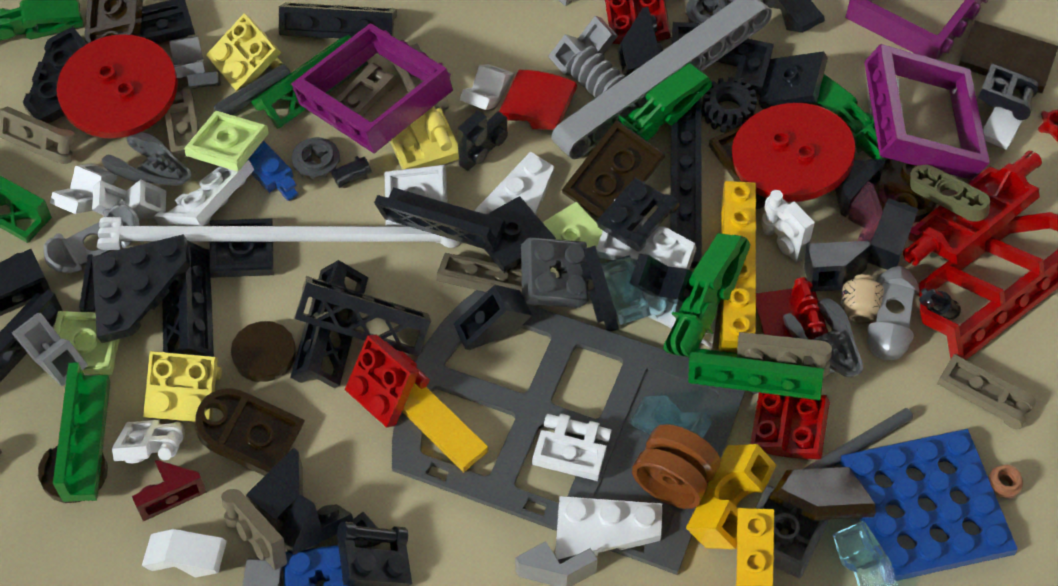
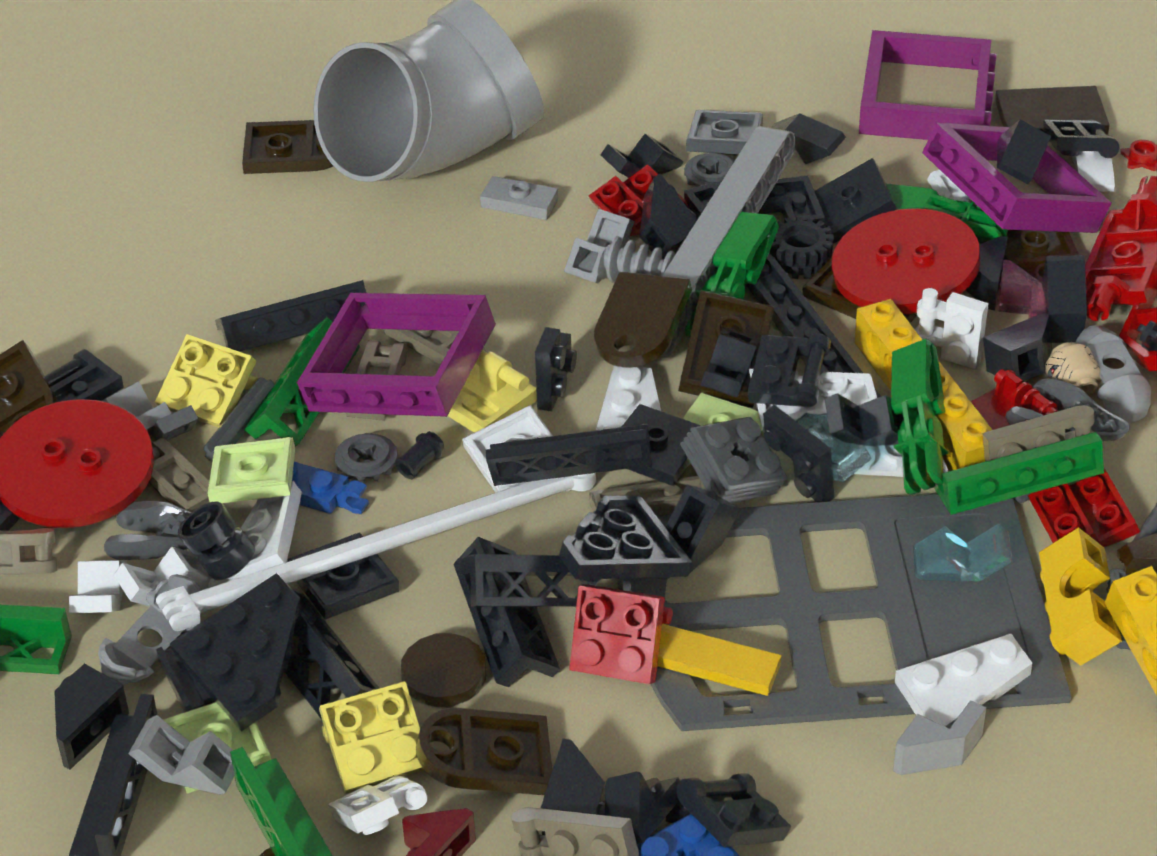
camera: 25 degrees left, 15 degrees down
(165, 189) = (216, 540): none -> black wheel
(424, 311) = (623, 543): none -> black plate
(487, 87) = (519, 319): white slope -> none
(538, 99) = (577, 306): red slope -> none
(563, 124) = (642, 314): none -> dark brown tile
(570, 454) = (873, 620): white plate -> none
(603, 189) = (730, 362): none -> black slope
(676, 466) = (1007, 583): dark orange wheel -> none
(929, 97) = (1021, 150): none -> black slope
(967, 203) = (1112, 242): olive beam -> none

